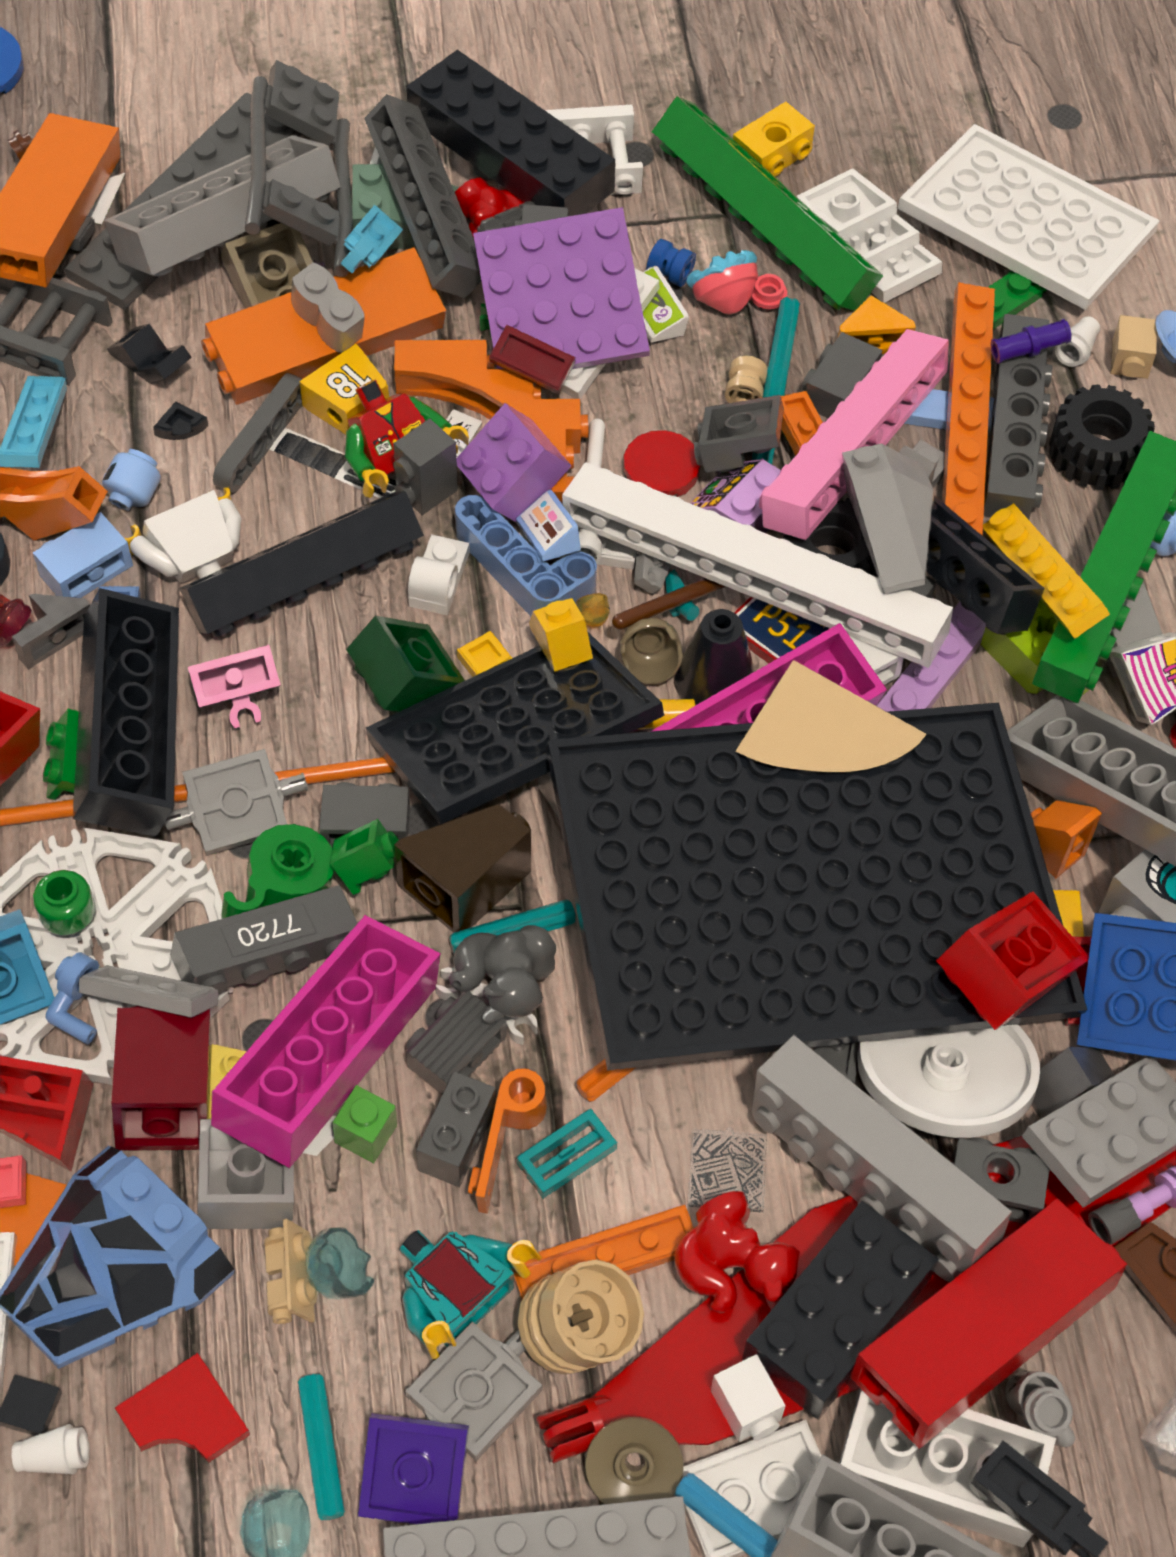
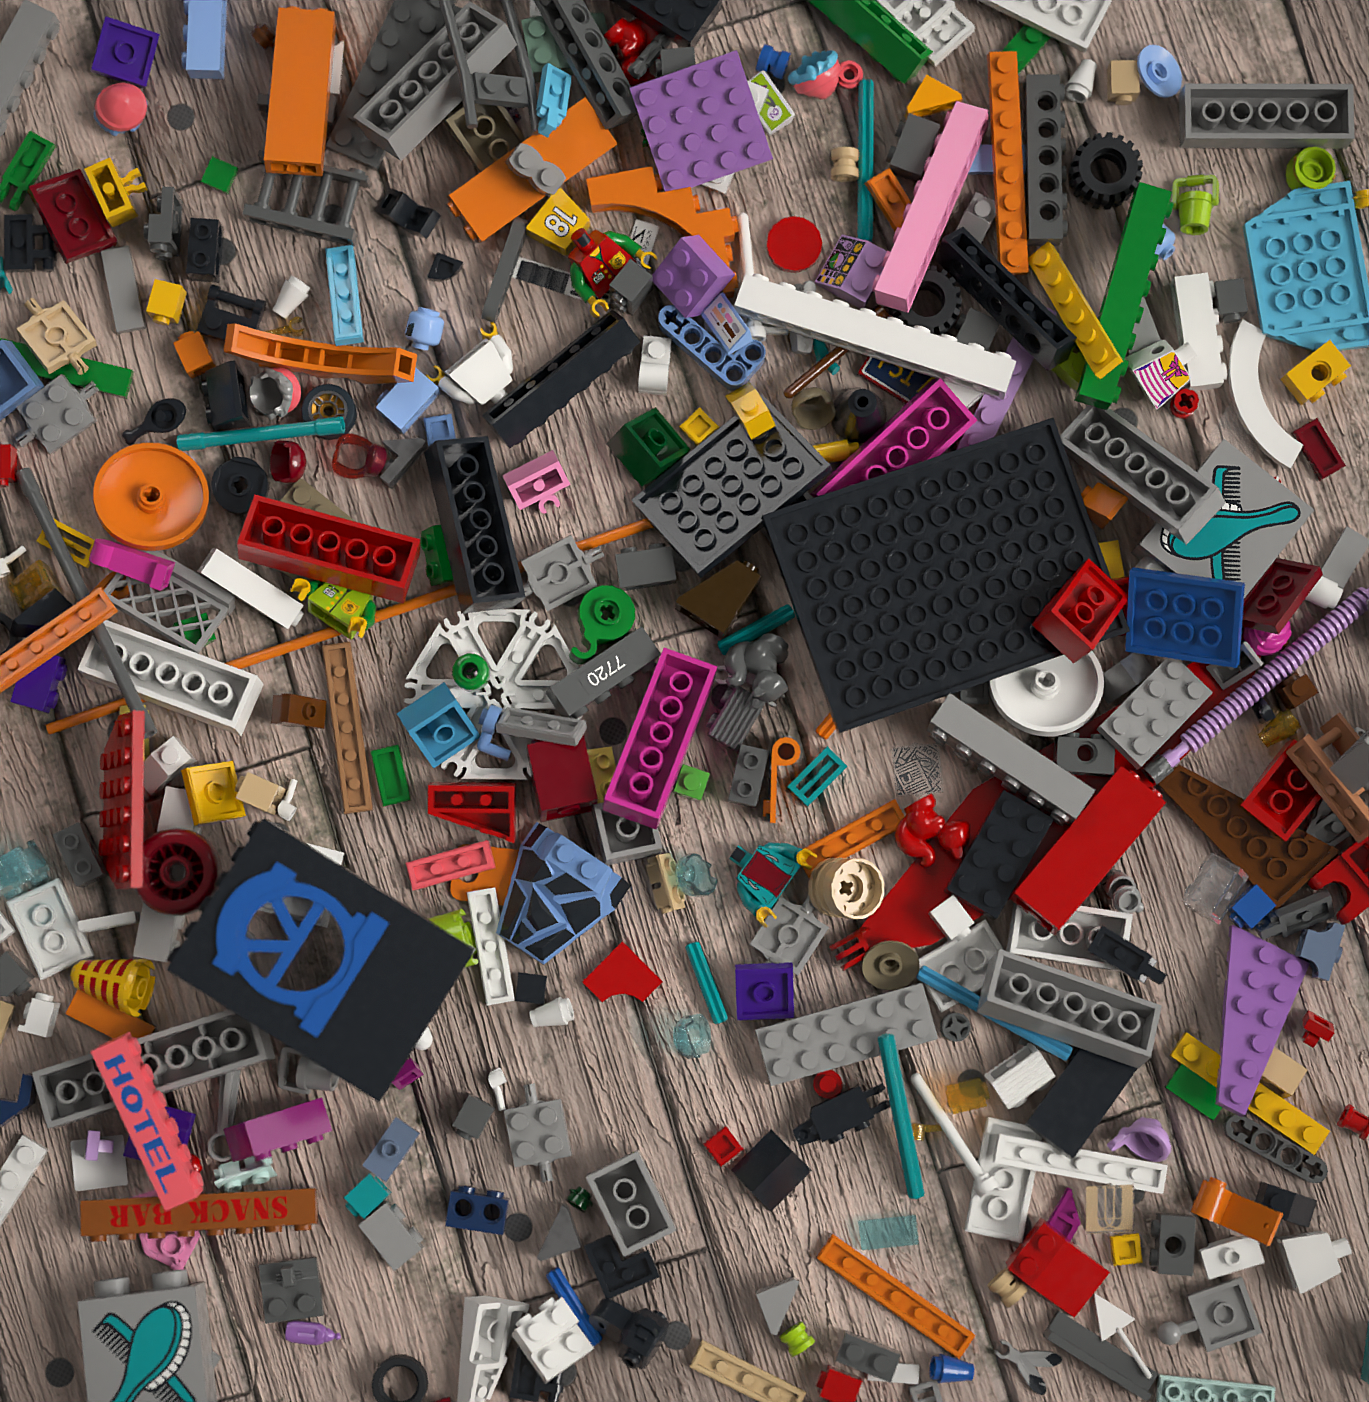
camera: 10 degrees left, 25 degrees up
(363, 854) = (652, 600): green brick -> none
(532, 359) = (690, 183): dark red tile -> none
(594, 609) = (767, 379): clear yellow hinge -> none
(736, 429) = (847, 217): dark grey plate -> none
(824, 728) = (940, 464): tan sticker -> none
(893, 512) = (967, 284): light grey wedge -> none
(1031, 341) = (1048, 103): dark purple pin -> none

